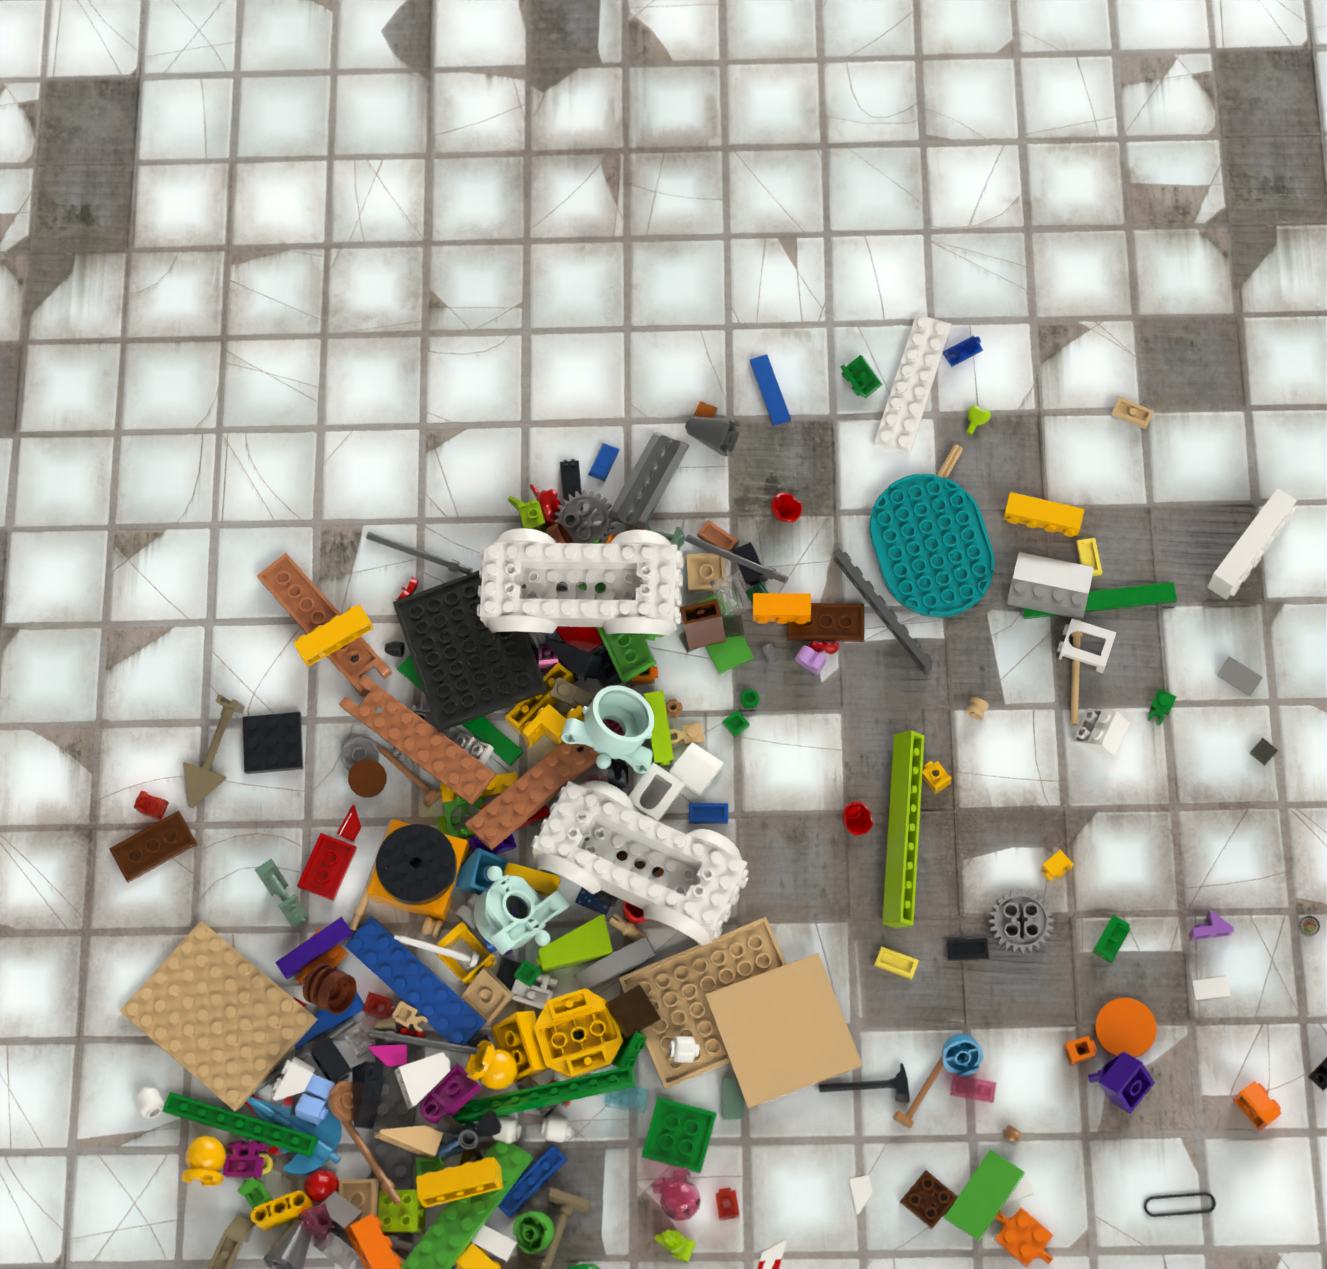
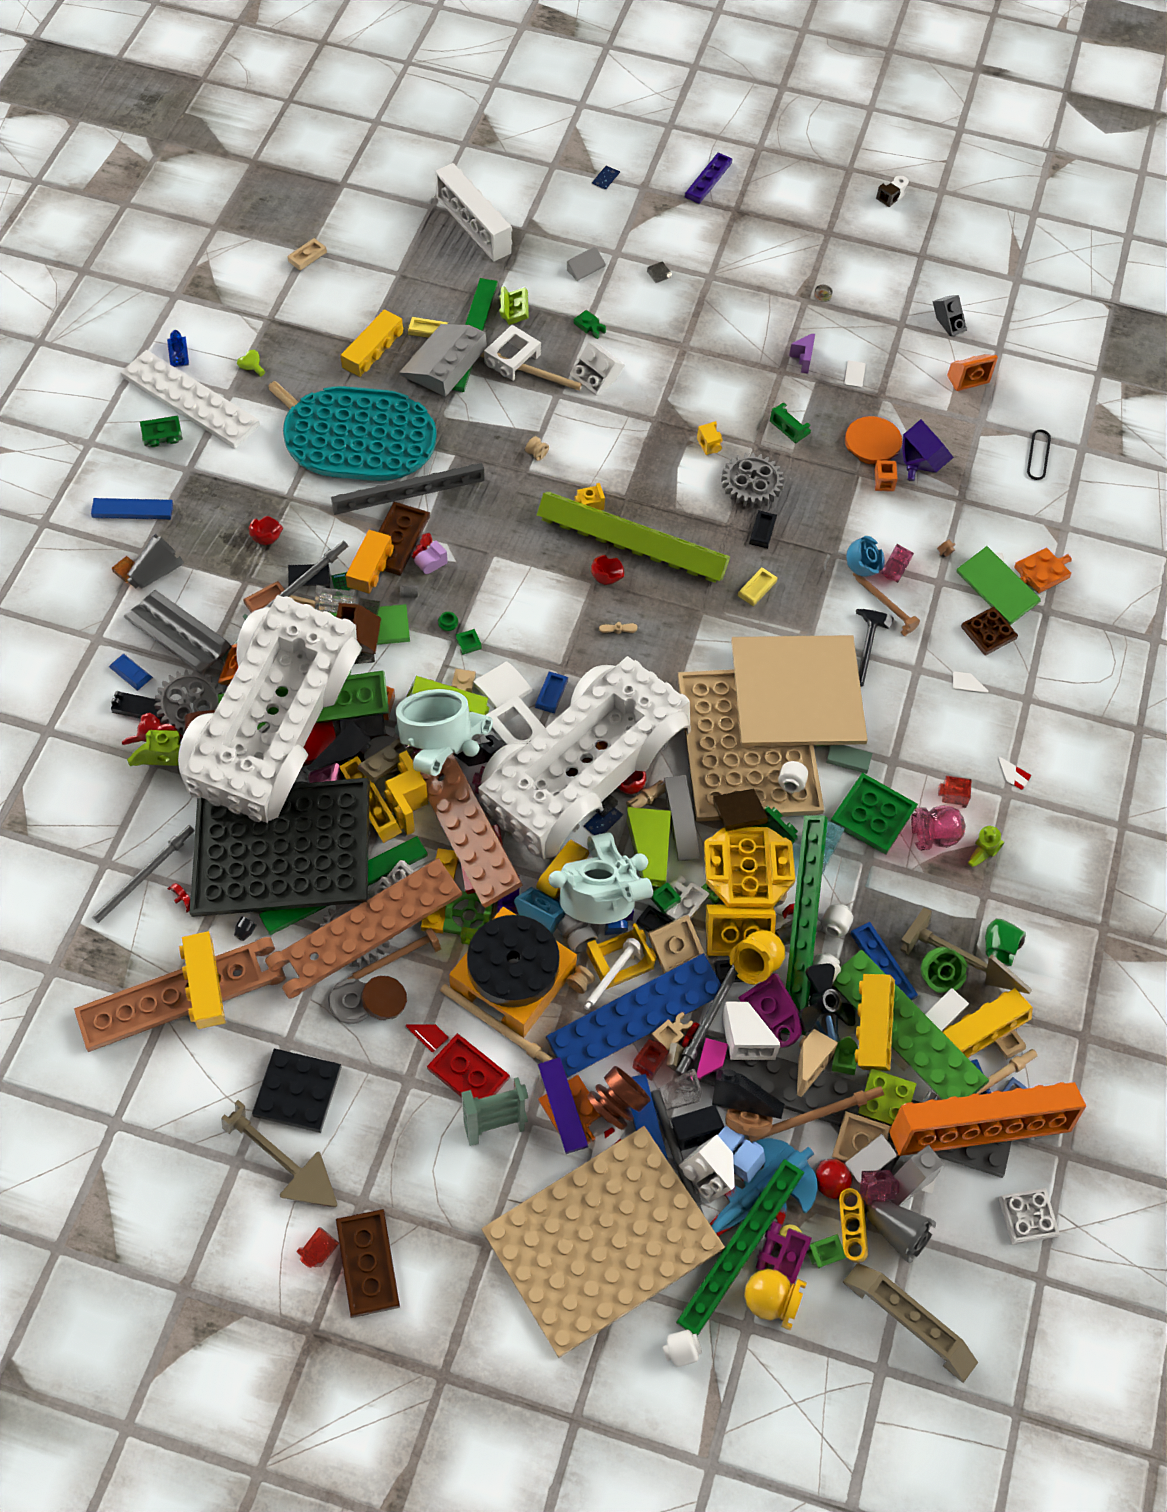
camera: 80 degrees left, 10 degrees down
(799, 849) = (618, 628): none -> tan piece
(1150, 625) = (514, 305): none -> lime bracket

